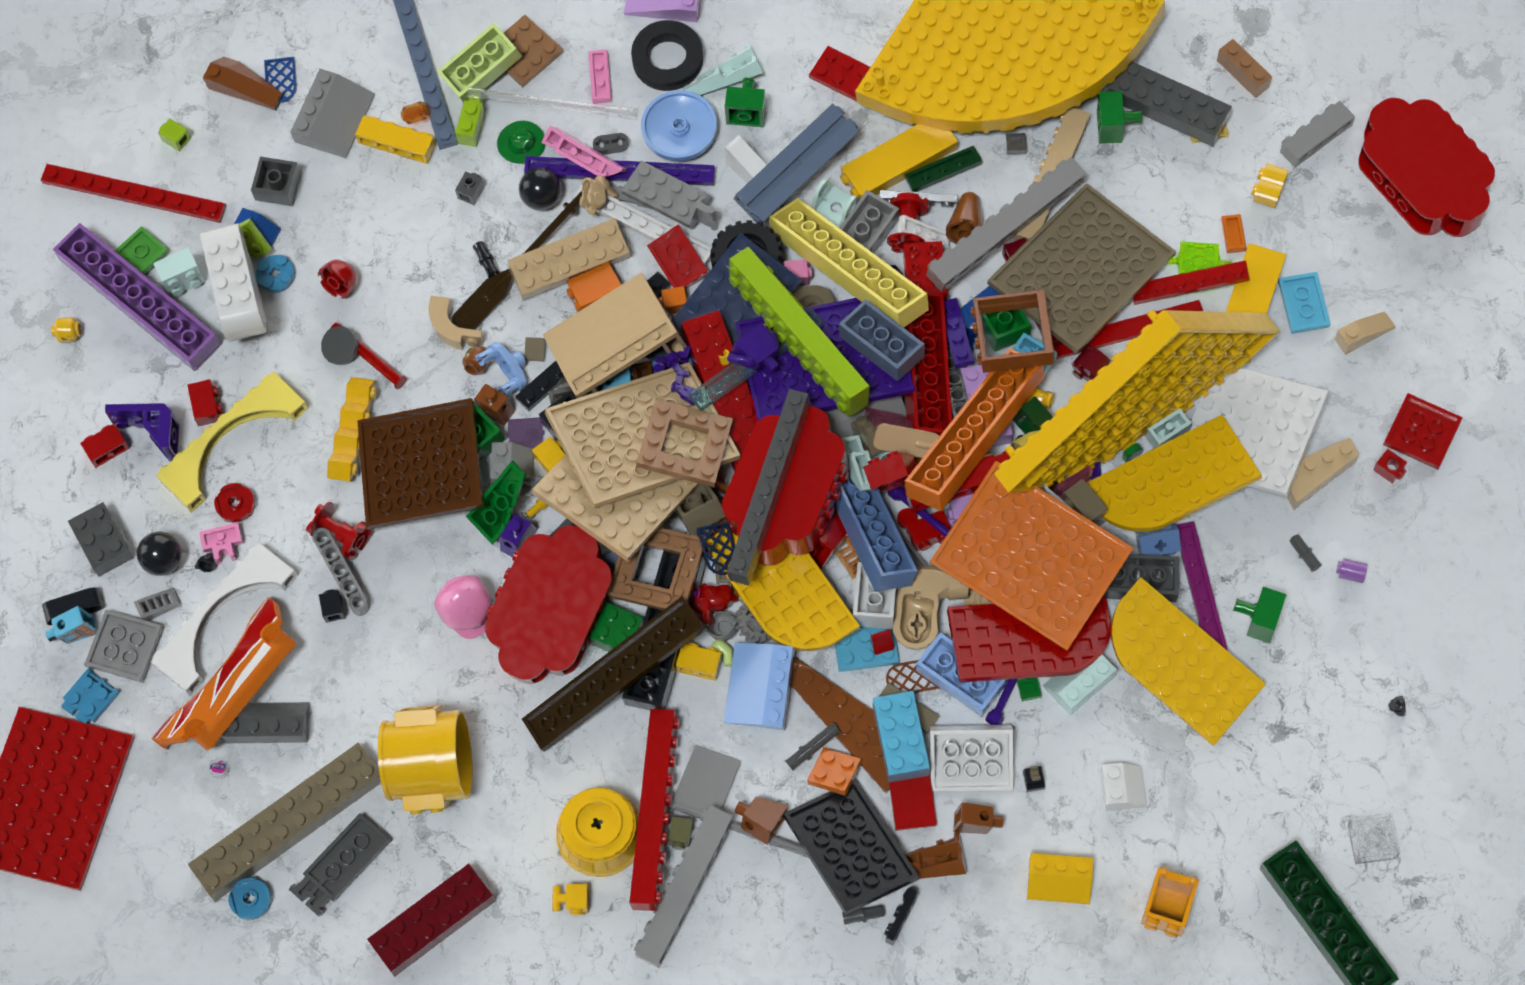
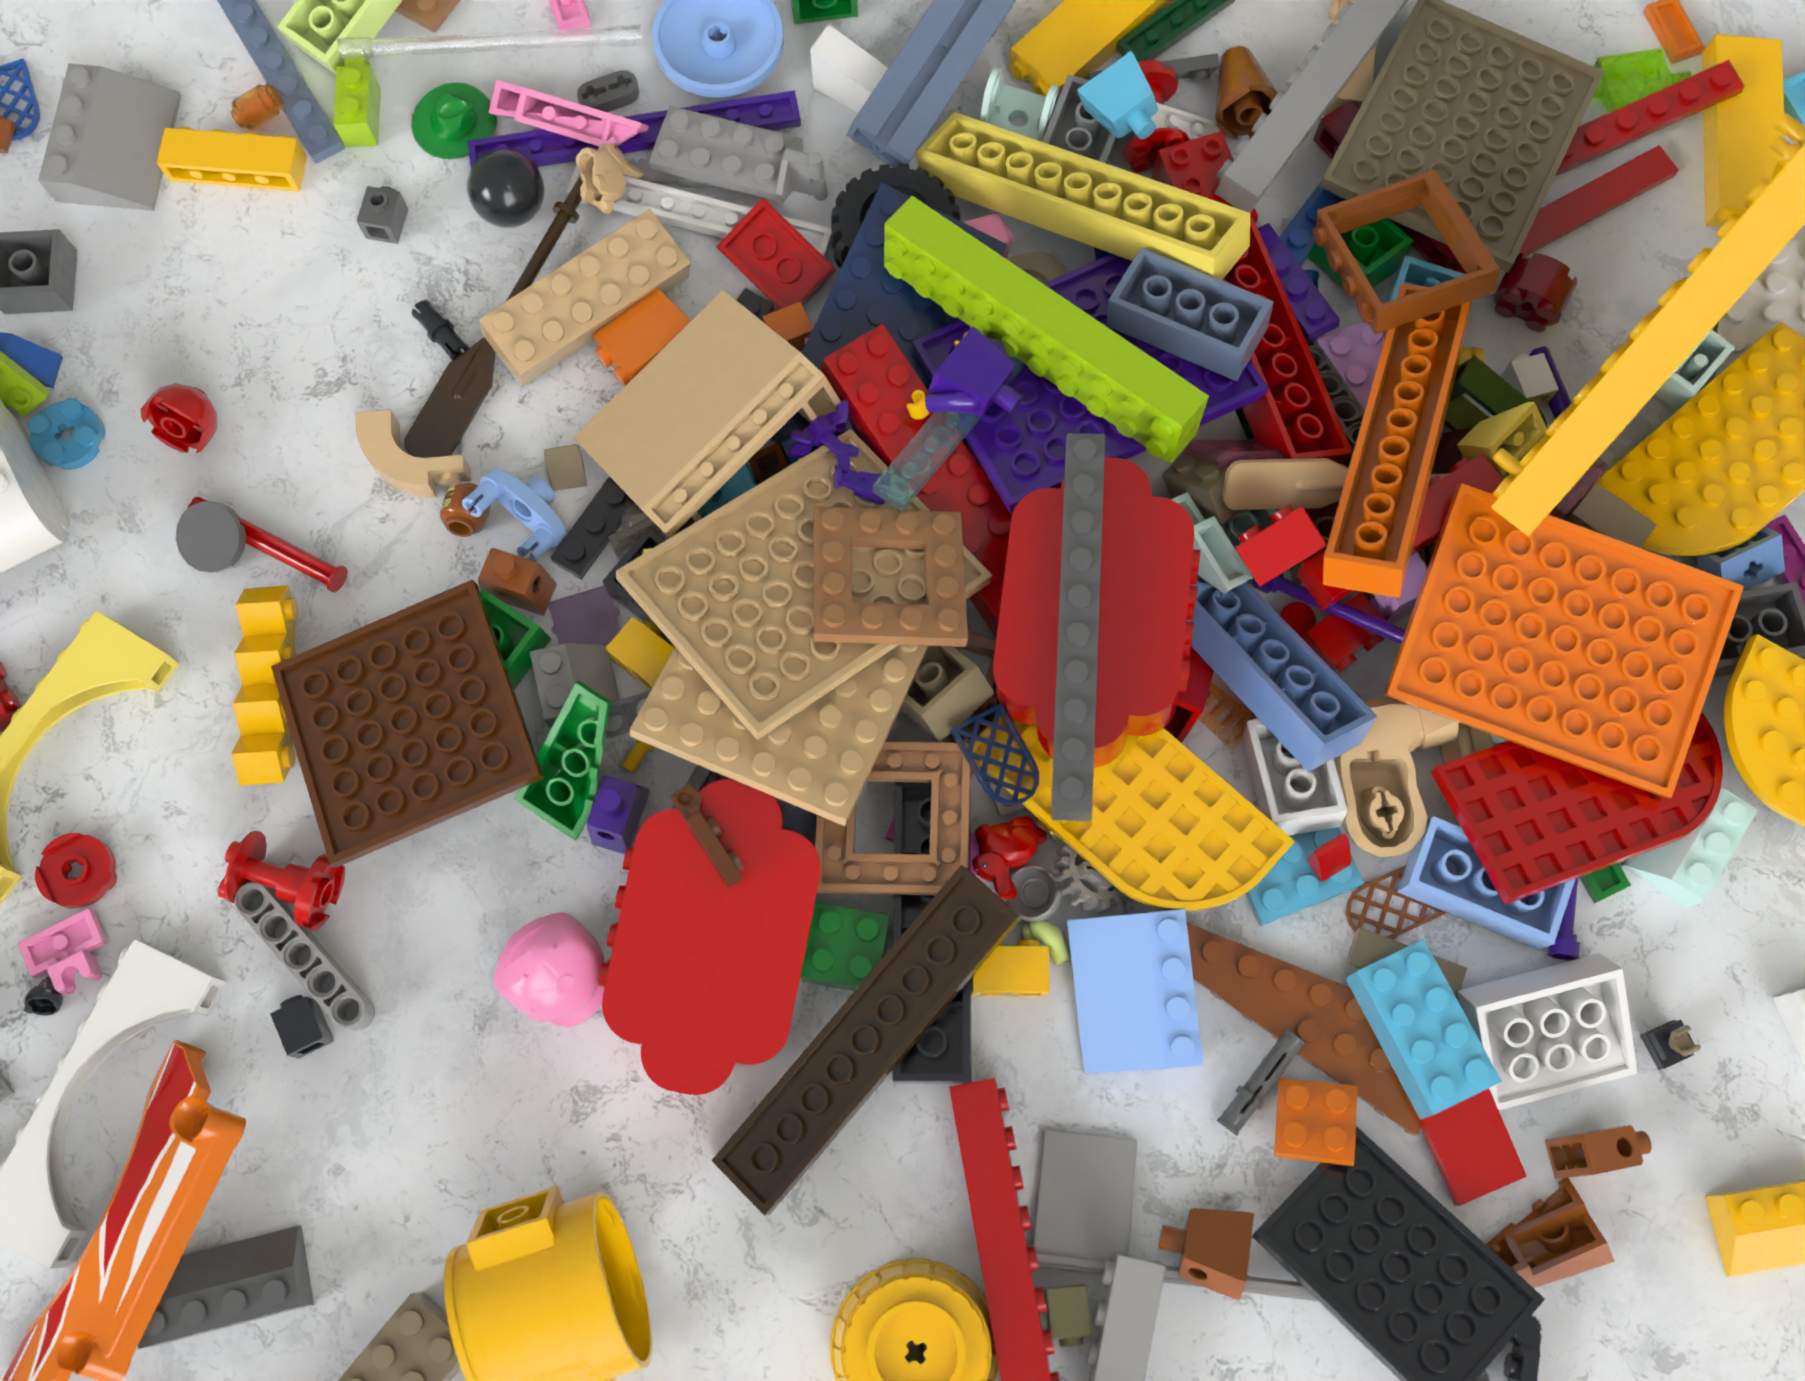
camera: 20 degrees left, 5 degrees up
(557, 549) = (706, 832): none -> reddish brown hinge
(888, 211) = (1121, 99): none -> medium azure torso
(1132, 452) = (1639, 421): green tile -> none

